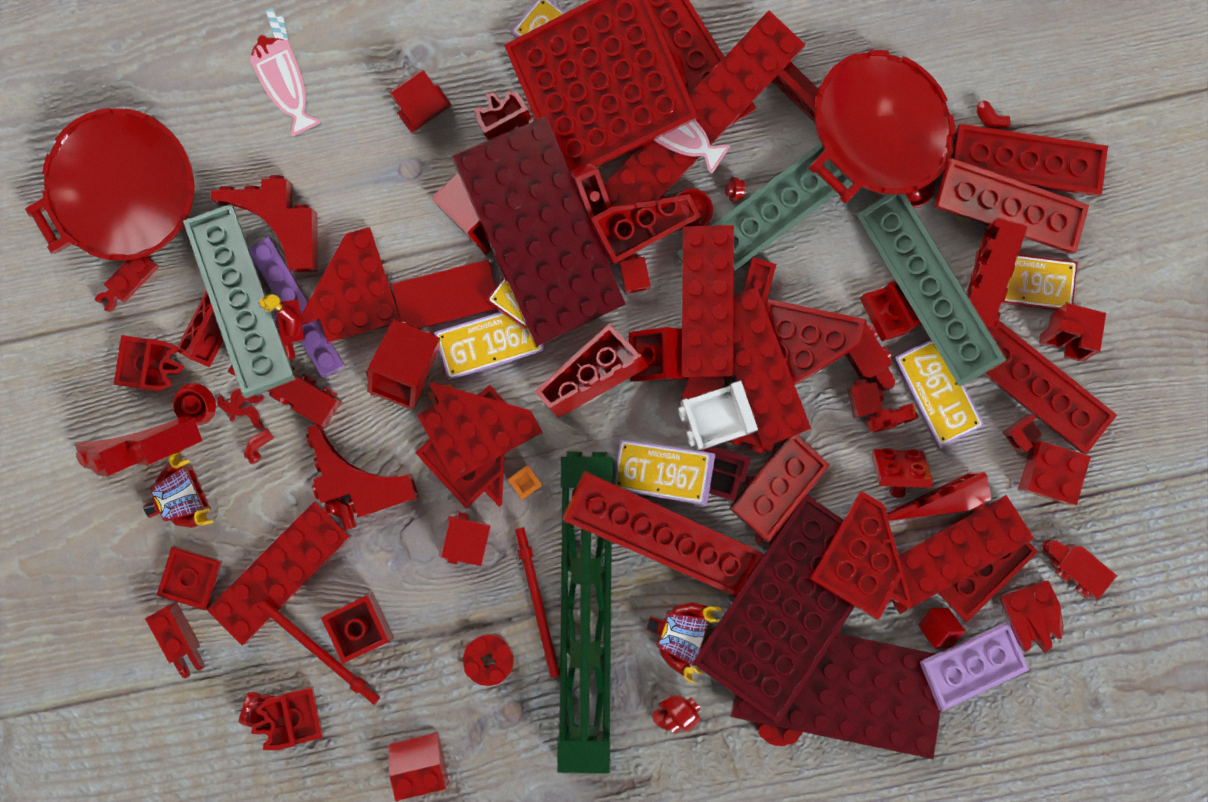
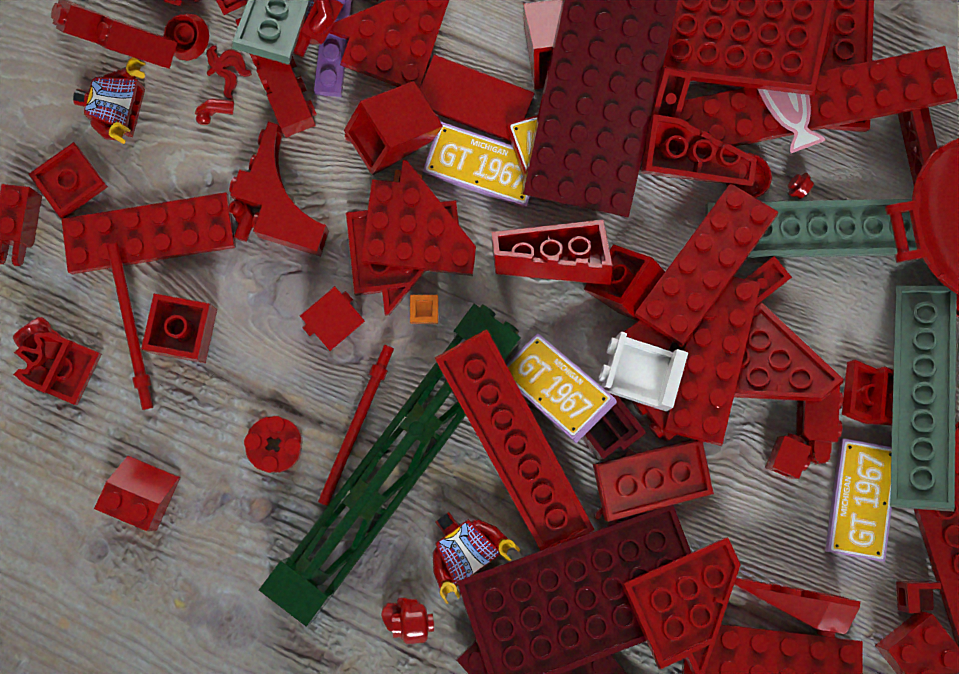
camera: 30 degrees right, 5 degrees down
(635, 274) = (655, 196): red brick -> none
(889, 419) = (800, 489): red plate -> none
(901, 470) = (778, 545): red plate -> none

